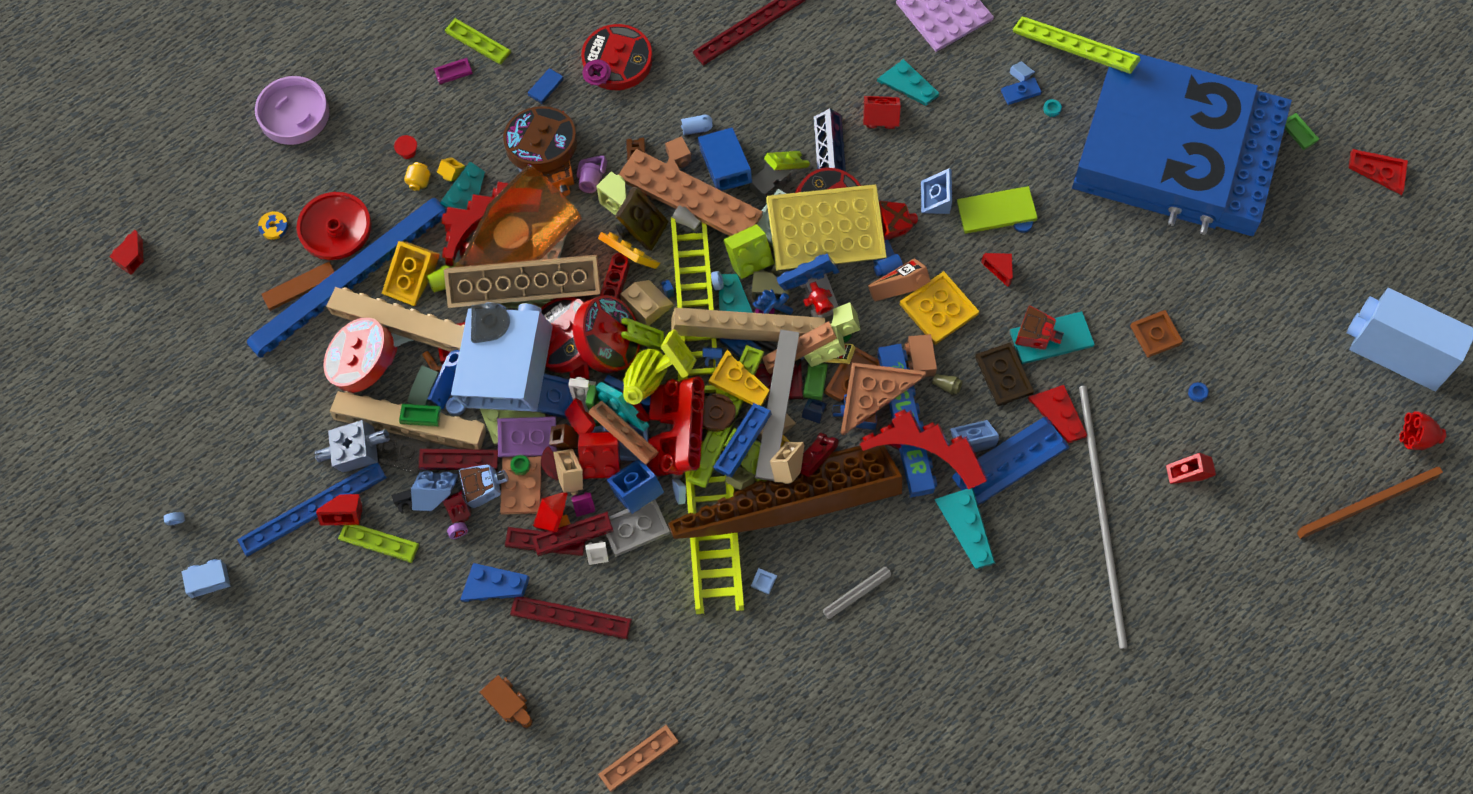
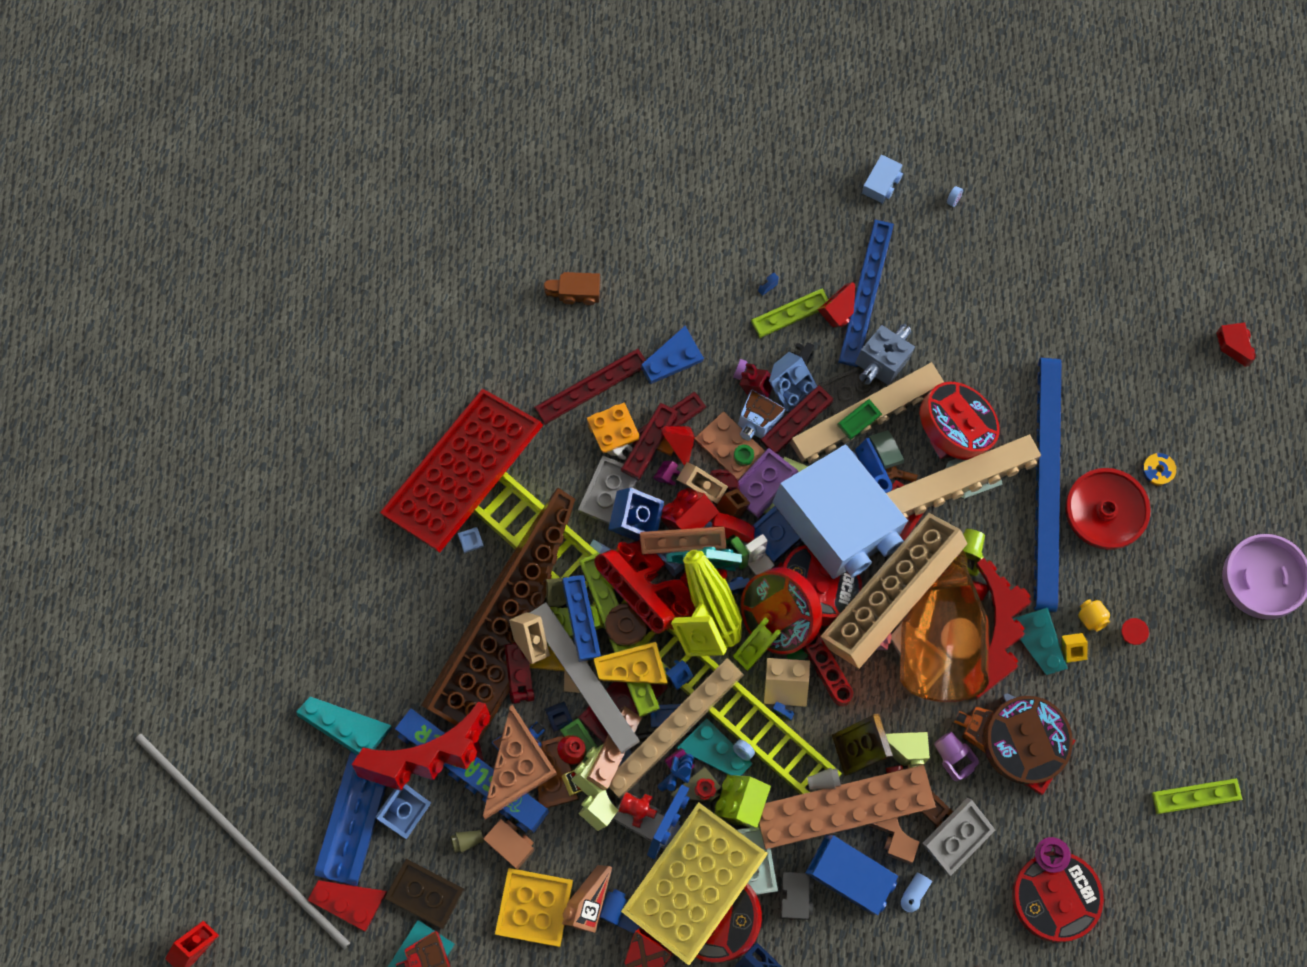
camera: 135 degrees right, 5 degrees up
(297, 286) = (1077, 441): dark orange tile -> none
(368, 575) = (772, 282): none -> blue tile
(409, 272) = (1005, 530): yellow slope -> none
(453, 71) = (1183, 746): magenta tile -> none
(488, 322) = (876, 520): clear smoke tile -> none
(545, 86) = (1088, 808): blue tile -> none
(588, 564) = (613, 428): none -> light orange bracket
(625, 248) = (845, 710): yellow wing -> none
(638, 129) = (958, 836): none -> light grey plate
(638, 758) = (443, 334): nougat plate -> none
(724, 631) = (461, 470): none -> red plate
(765, 271) = (711, 790): none -> red plate
(786, 160) = (797, 925): lime hinge -> none
(826, 374) = (567, 749): none -> red cone
(857, 592) = (389, 595): light grey axle -> none

